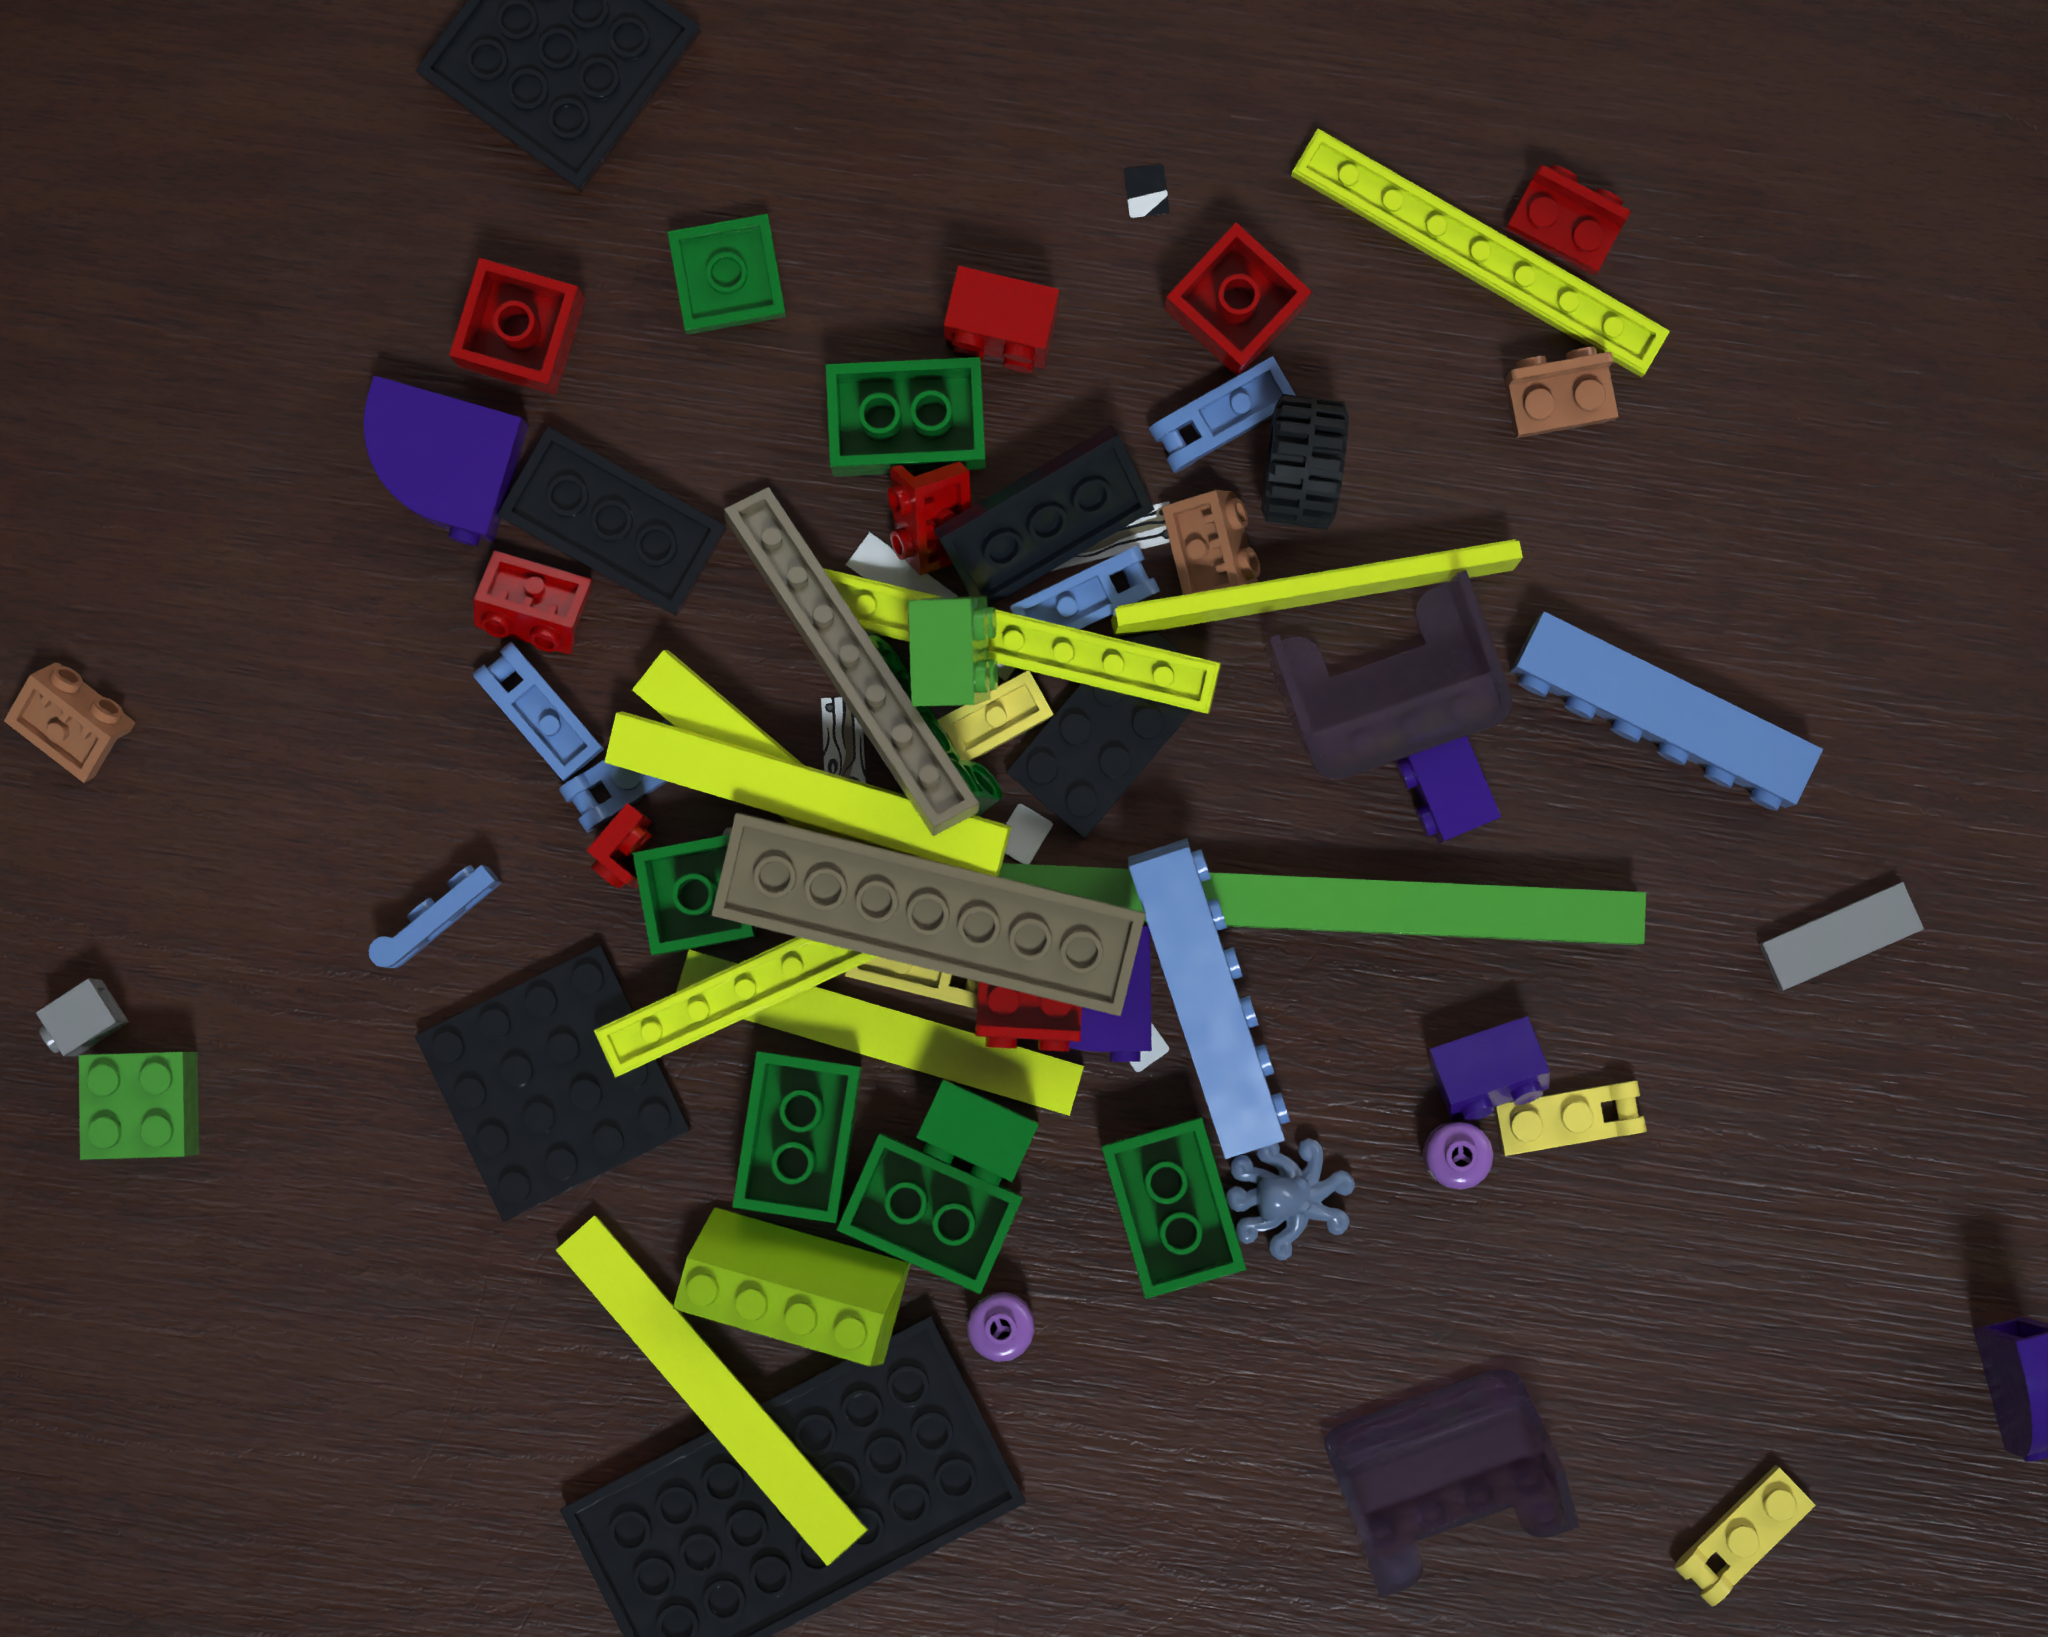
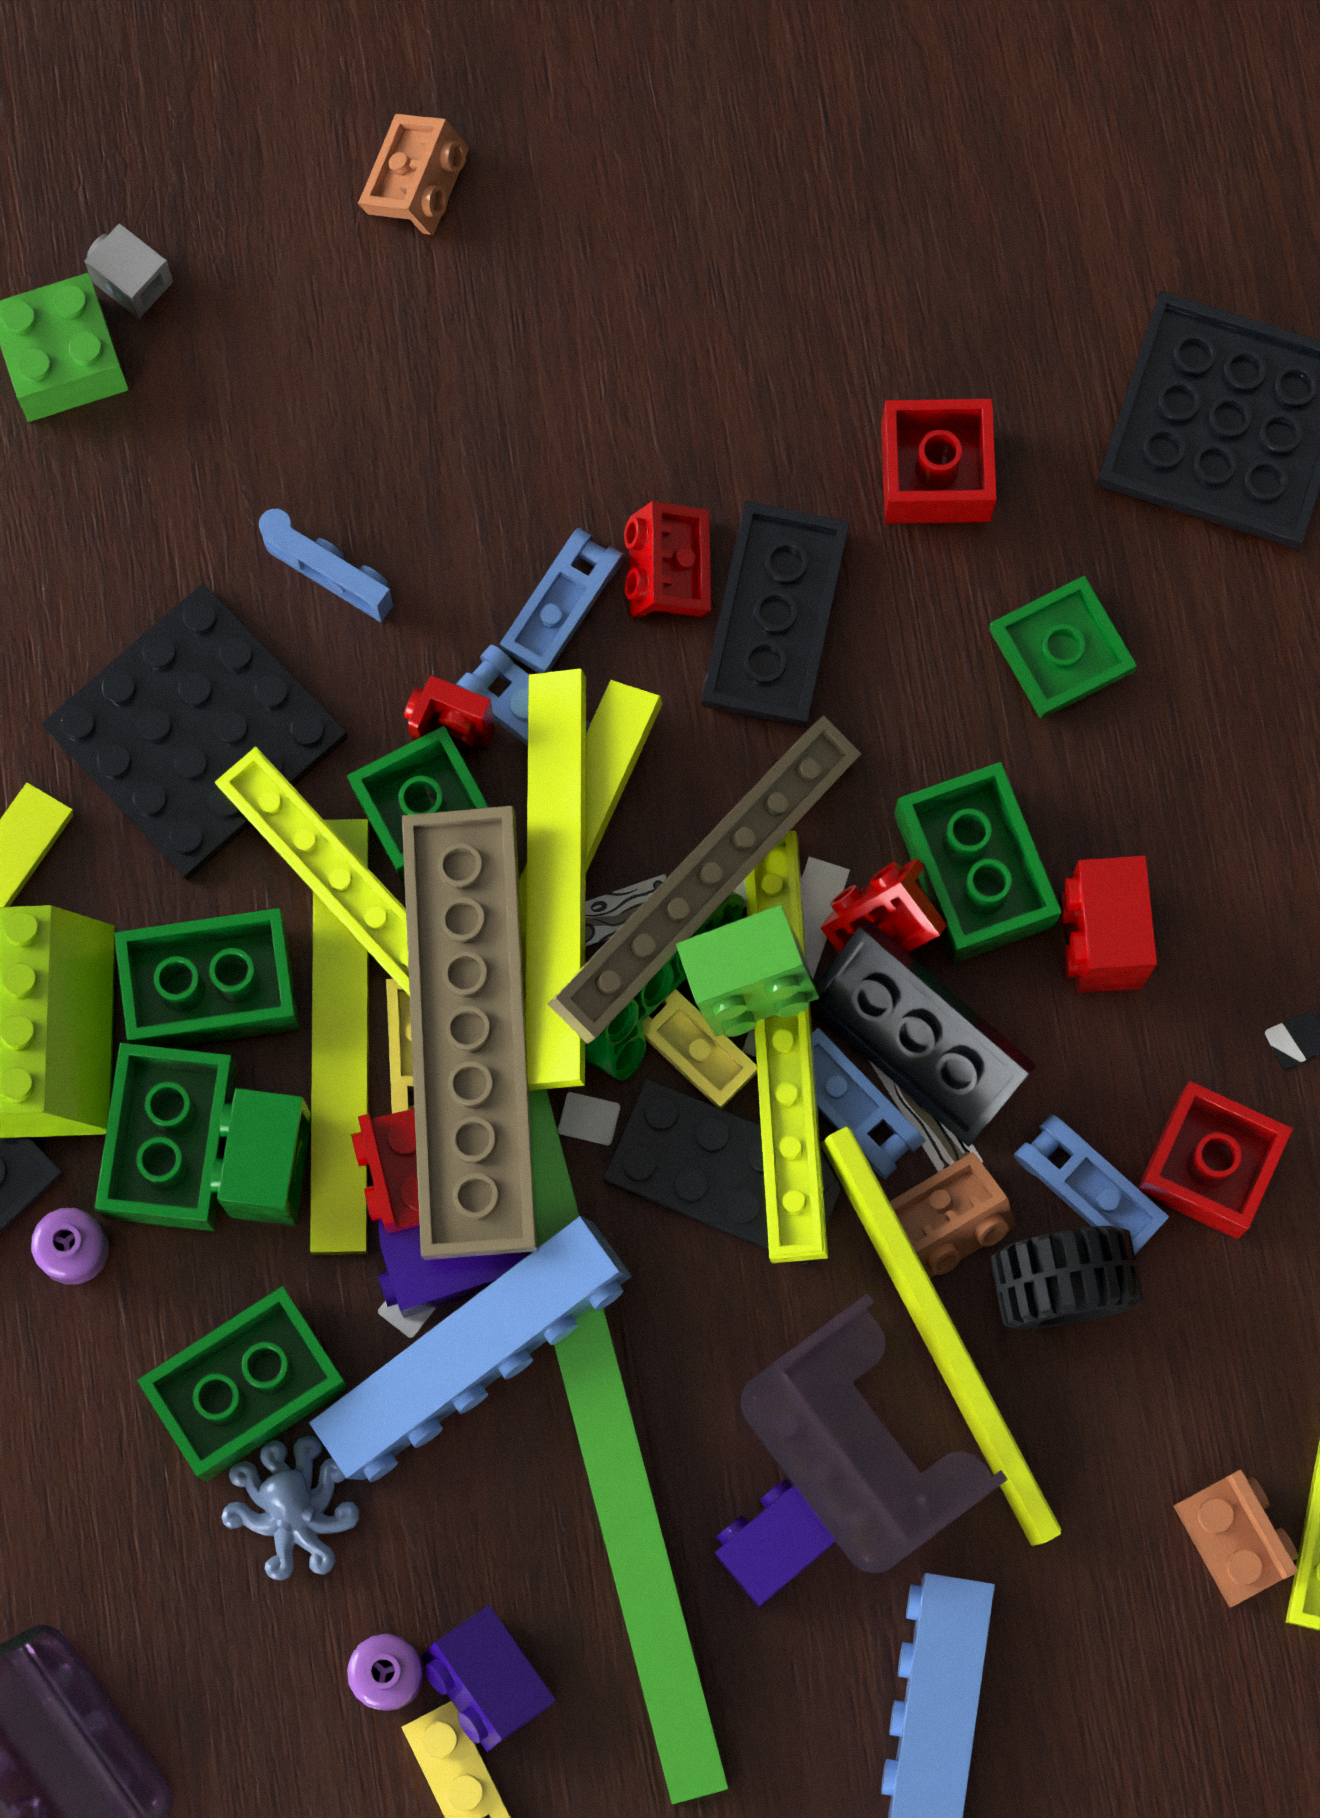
camera: 70 degrees right, 10 degrees down
(443, 456) = (785, 433): dark purple brick -> none

